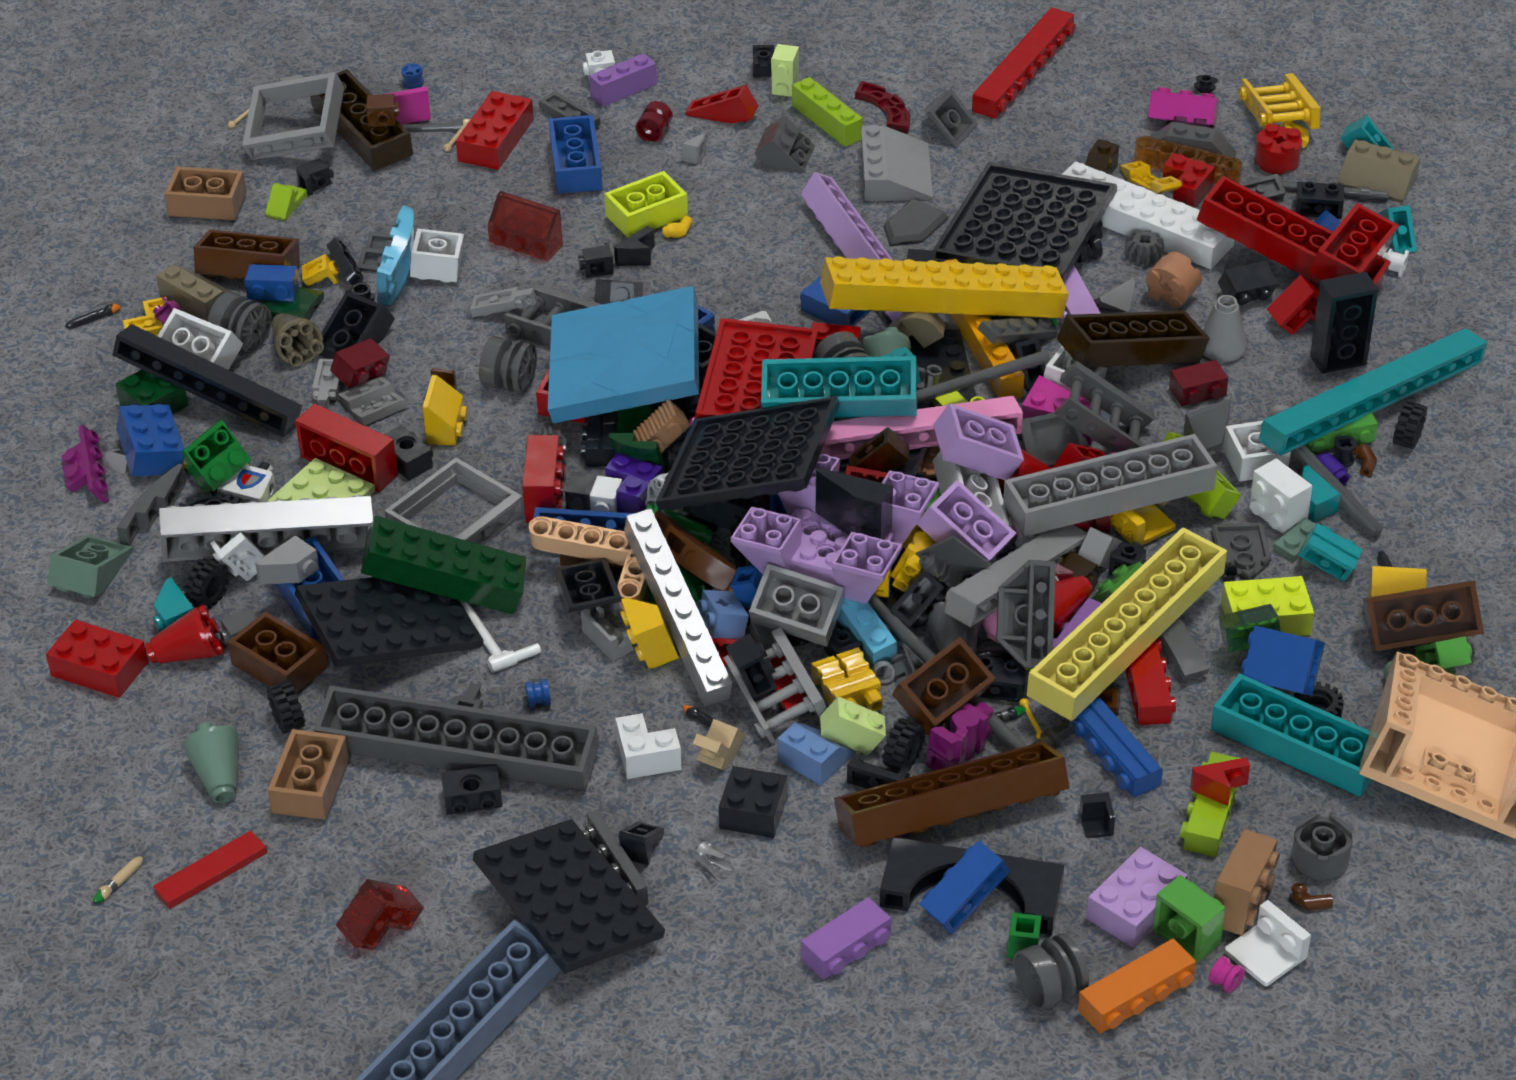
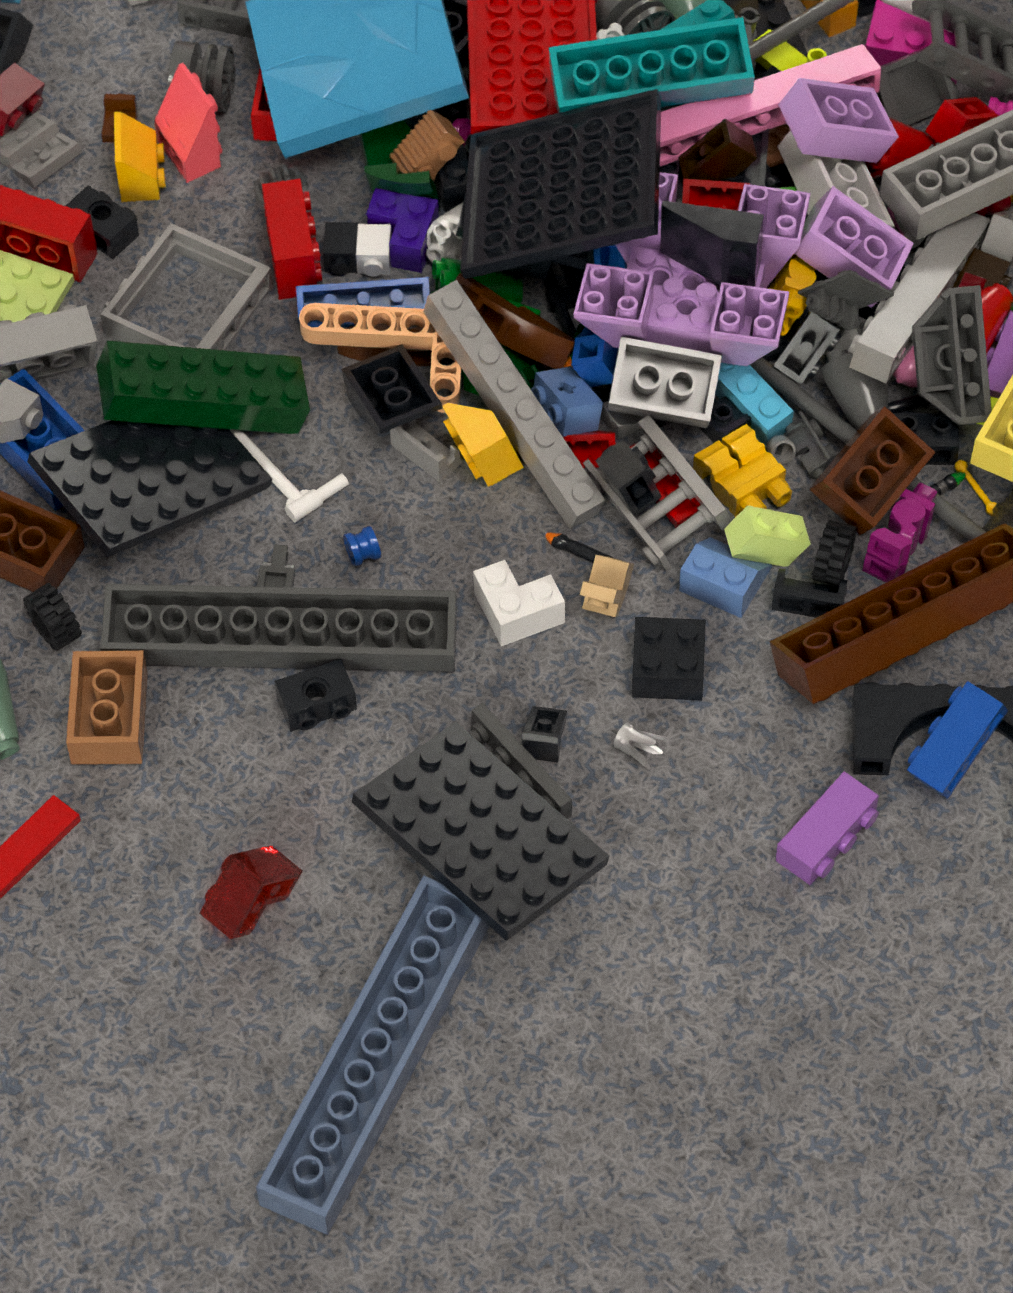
camera: 10 degrees left, 15 degrees up
(487, 395) = (189, 126): none -> coral slope
(598, 446) = (345, 170): black brick -> none

